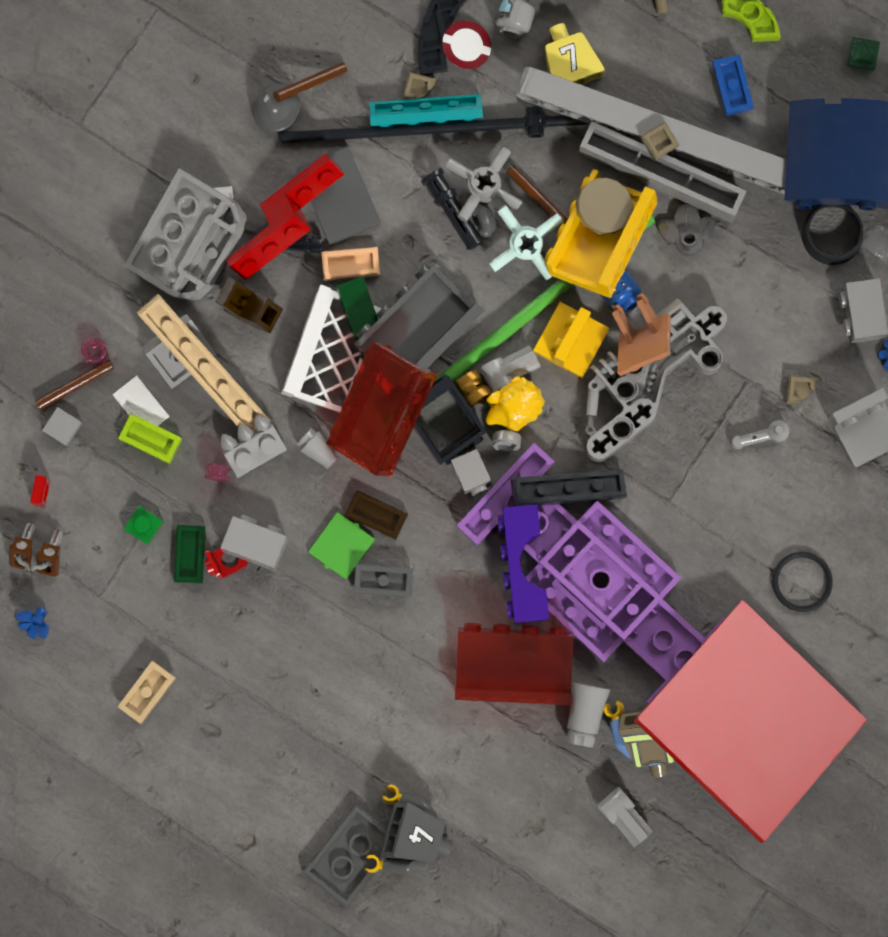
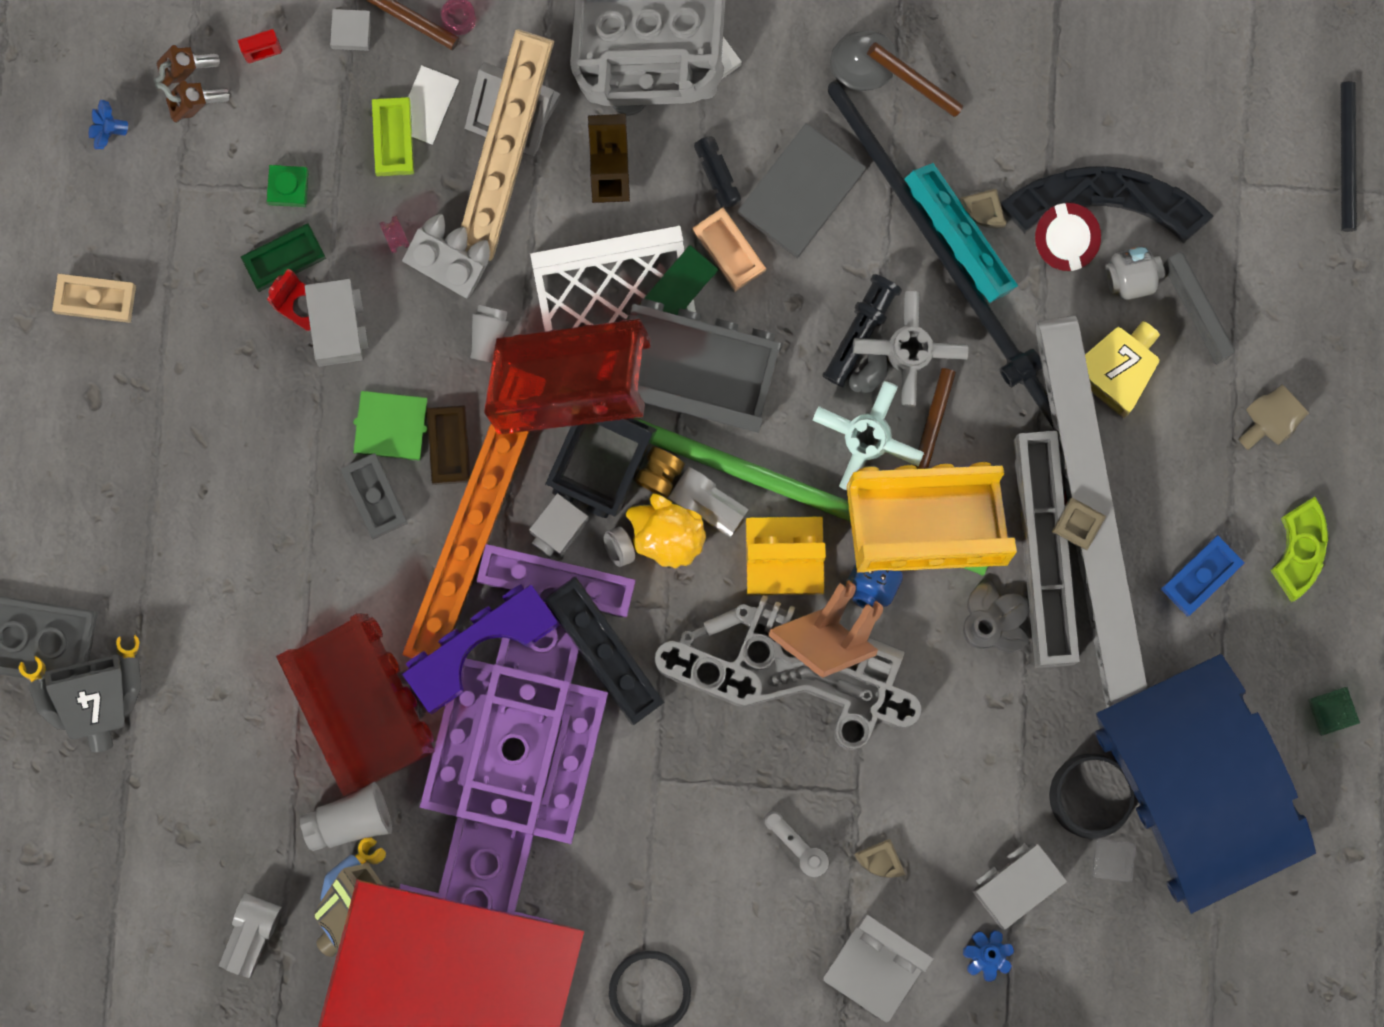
camera: 55 degrees right, 0 degrees up
(285, 216) = (737, 140): red bracket -> none
(448, 538) = (466, 541): none -> orange plate
(604, 206) = (963, 502): dark tan tile -> none

